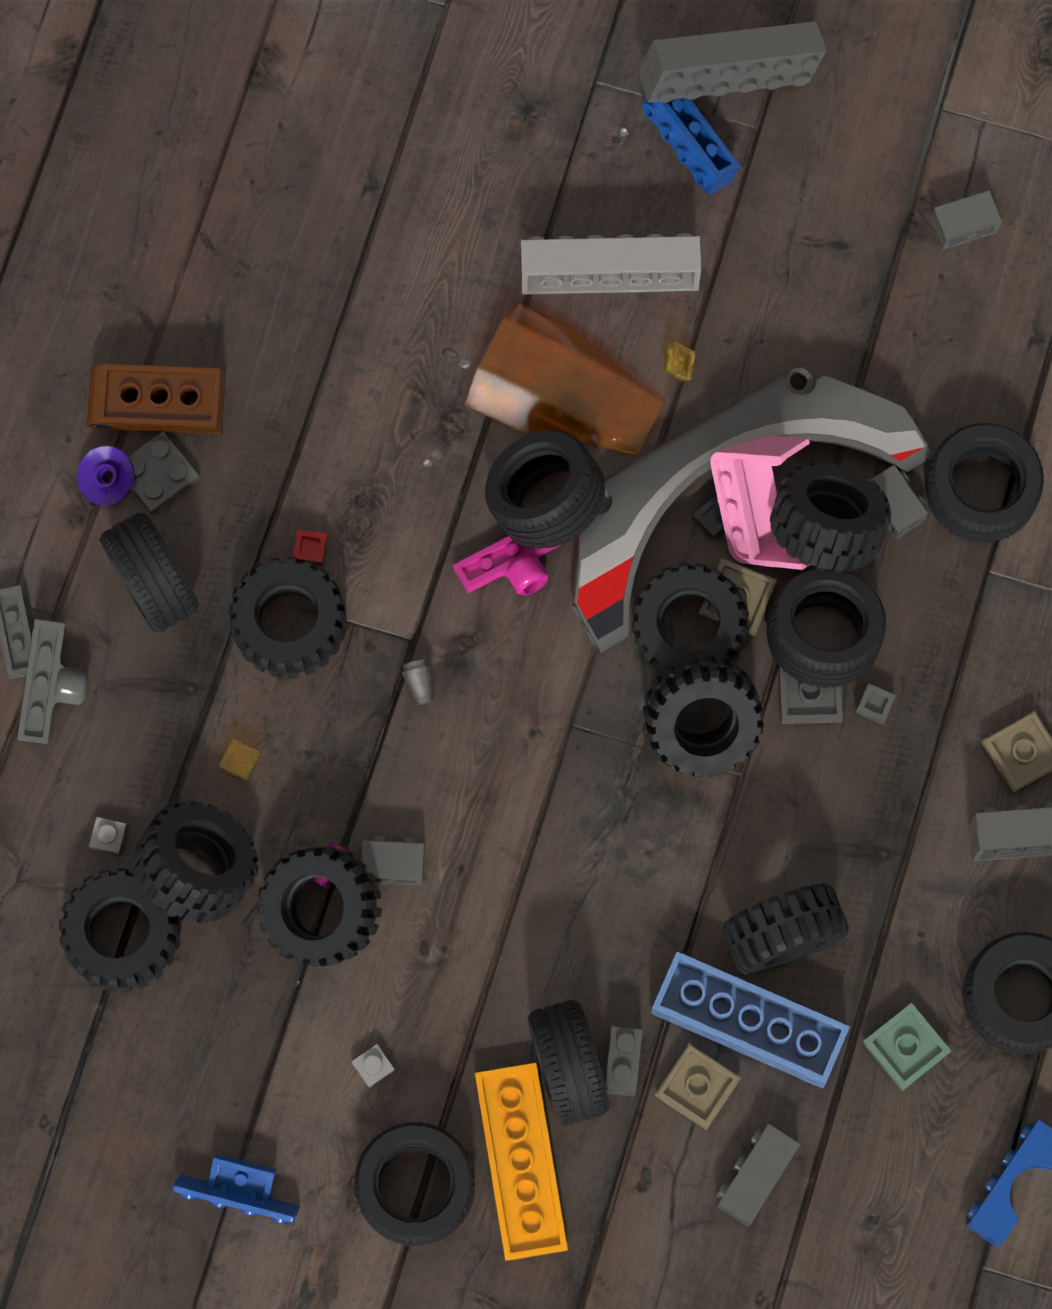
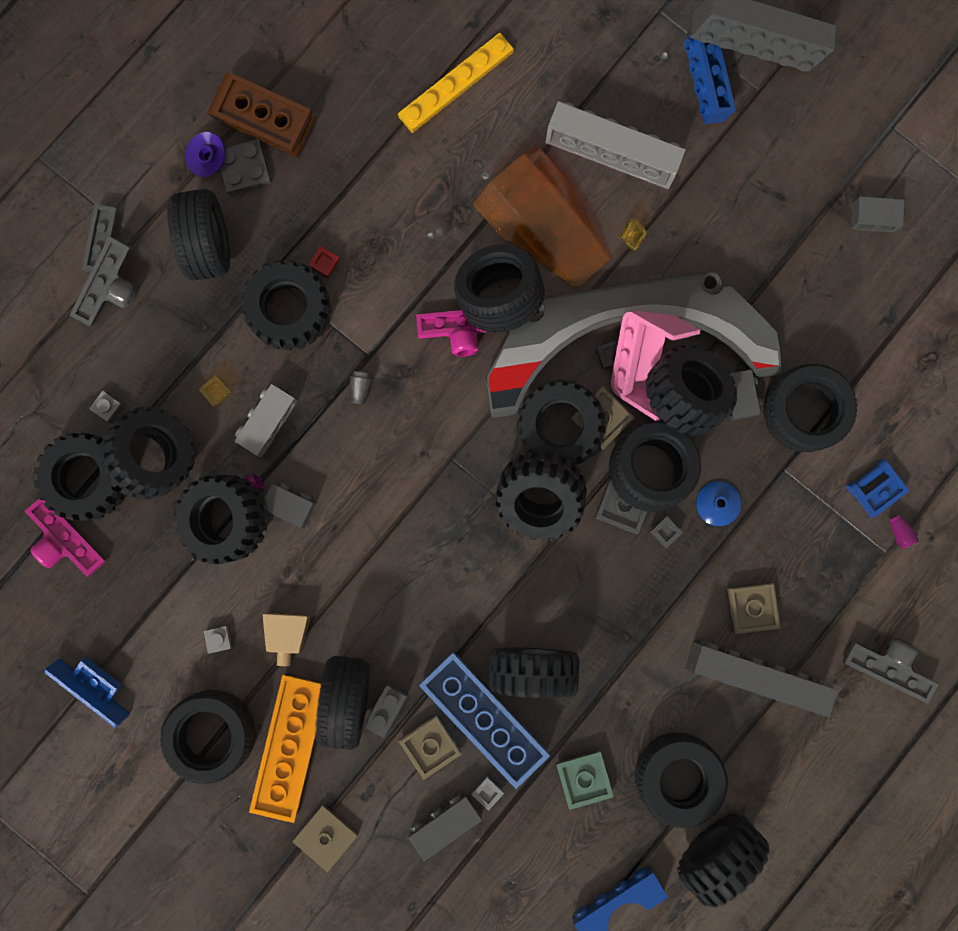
camera: 20 degrees right, 10 degrees up
(123, 1022) = (61, 541): none -> dark pink plate
(319, 769) = (265, 420): none -> light grey brick
(380, 266) = (455, 82): none -> yellow plate
(456, 1022) = (285, 635): none -> tan torso
(614, 1255) = (325, 838): none -> dark tan plate
(794, 1113) = (487, 793): none -> light grey plate
(924, 658) = (707, 503): none -> blue dish

